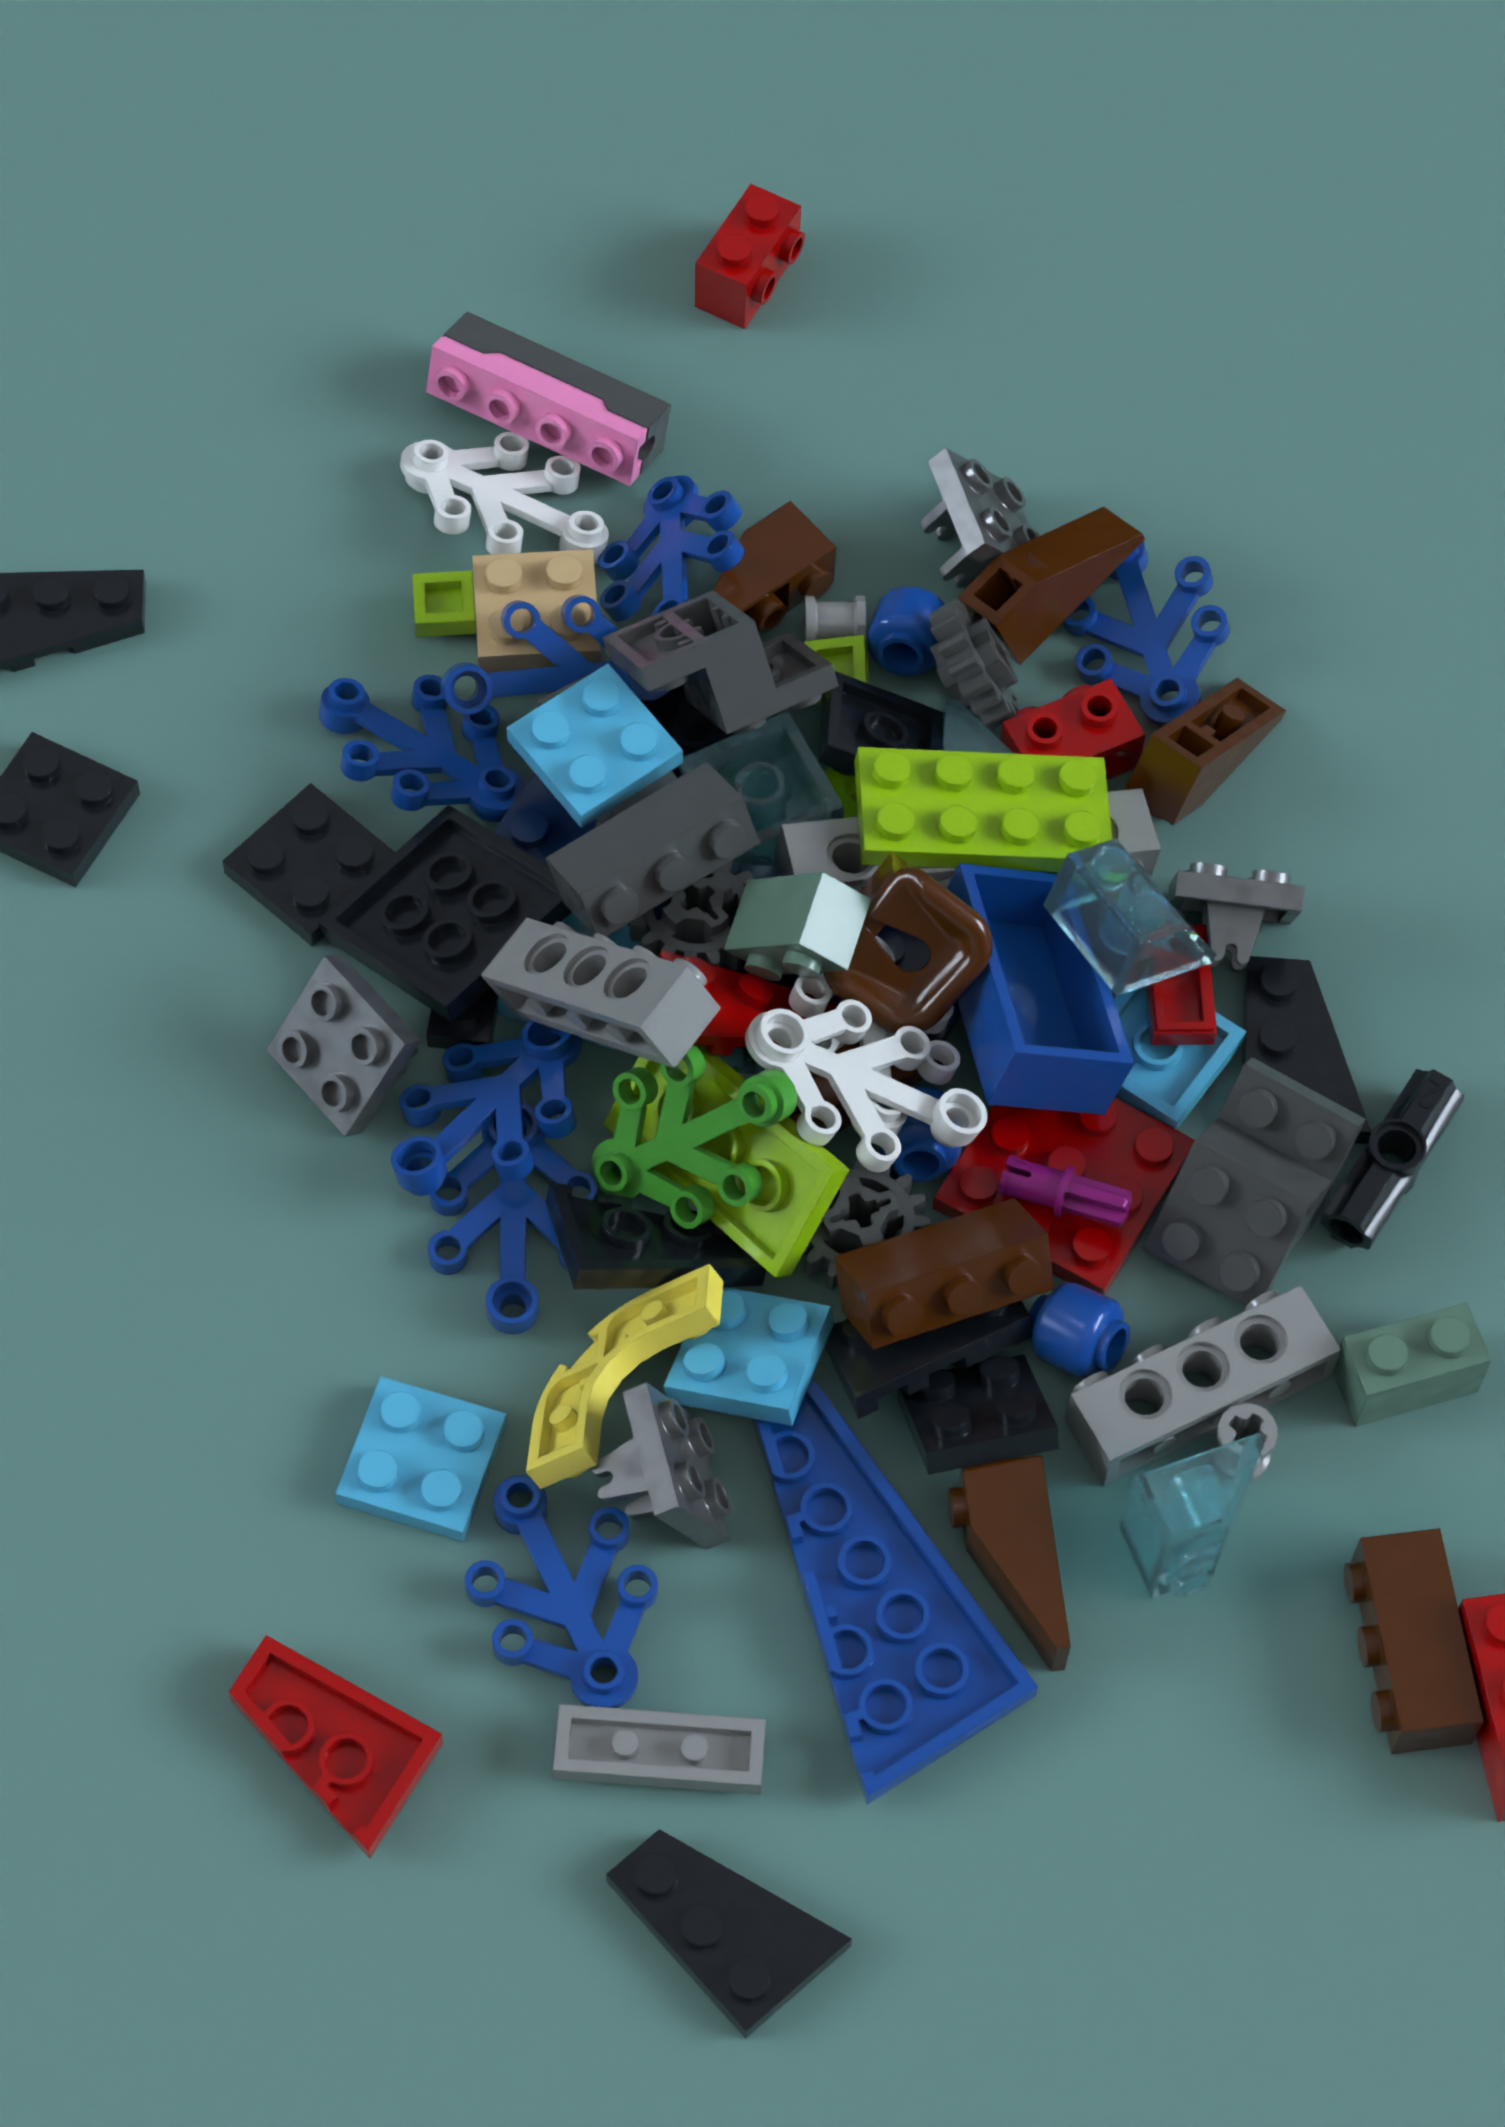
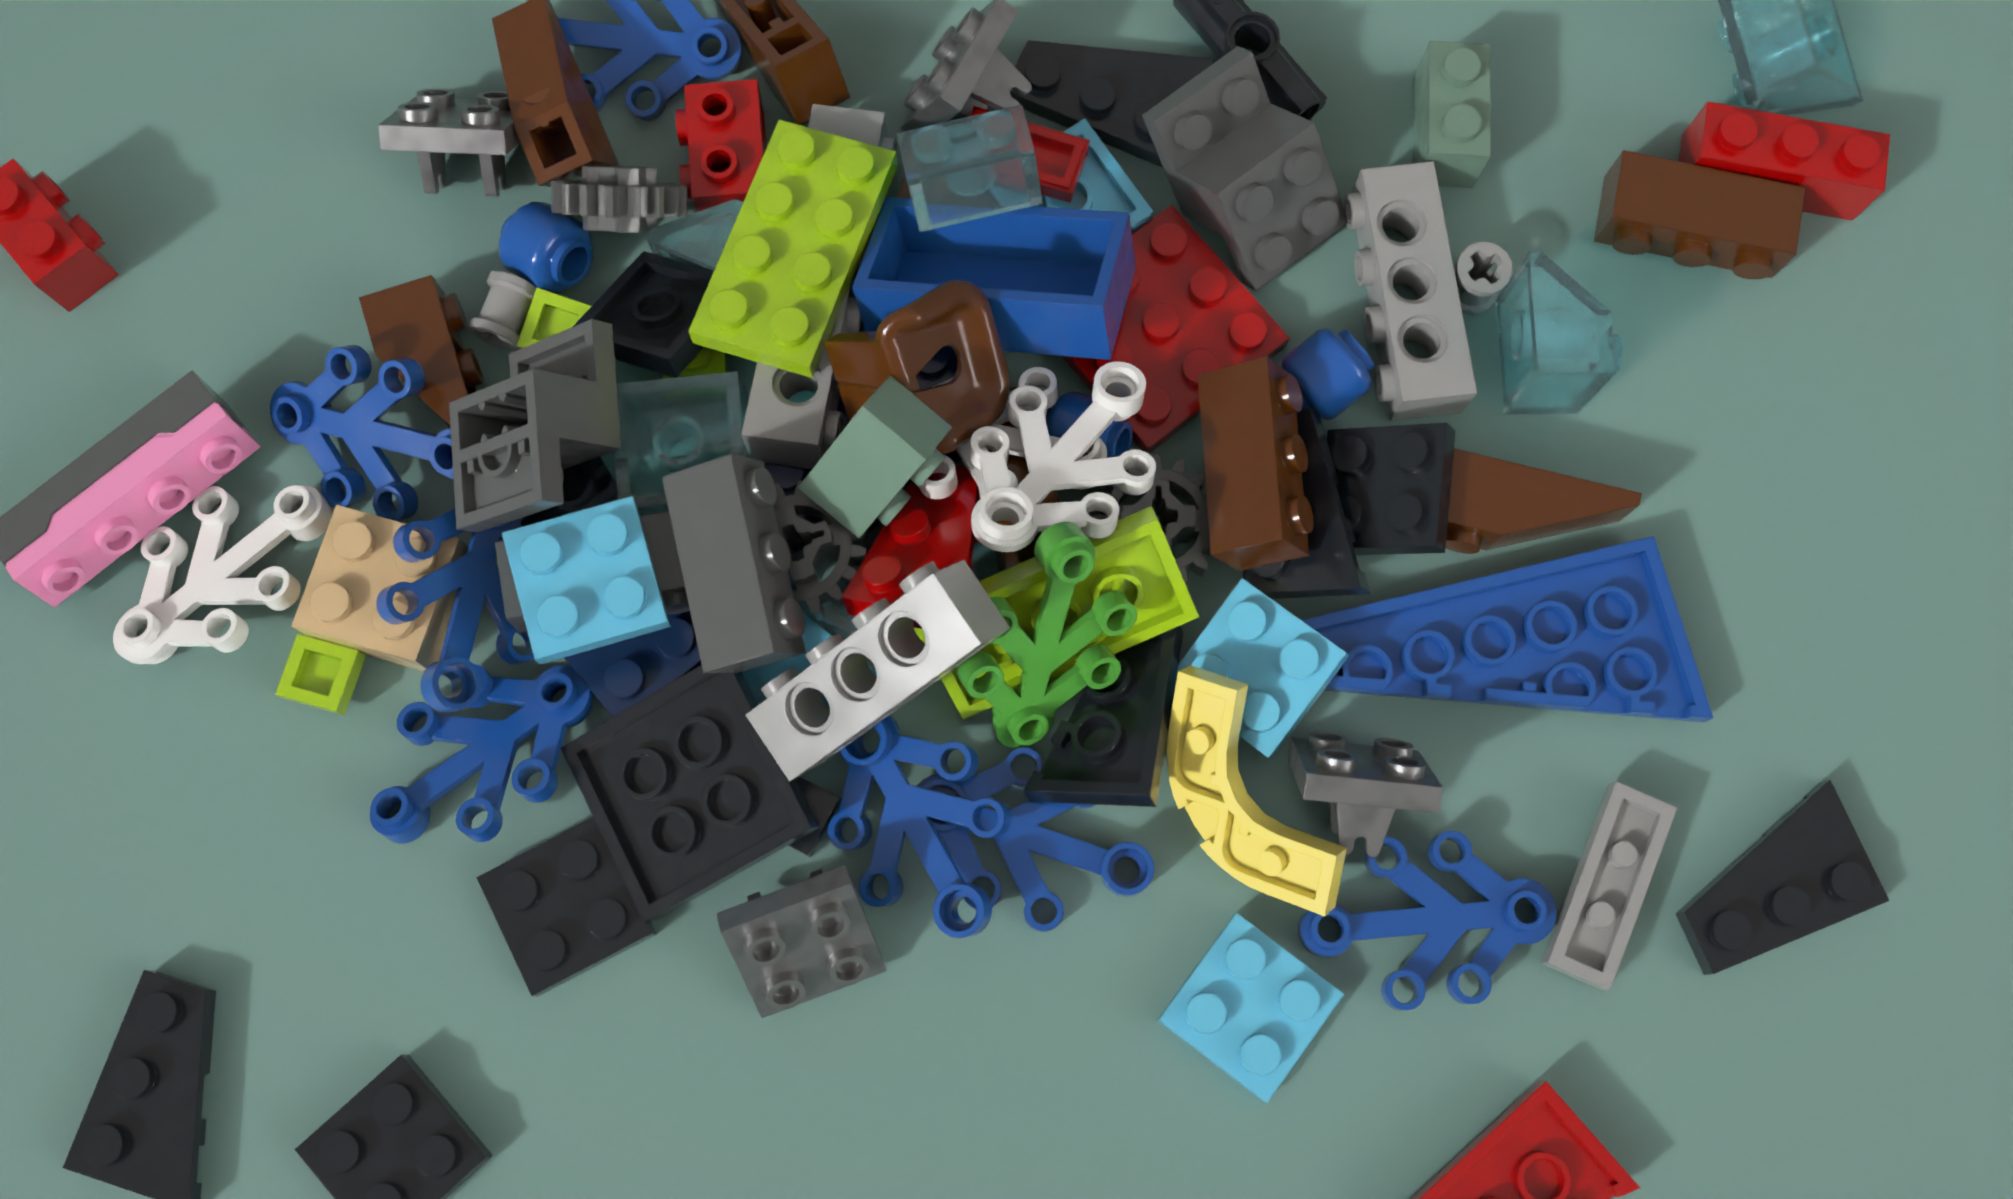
camera: 70 degrees left, 15 degrees up
(1065, 1192) = (1203, 329): magenta axle -> none

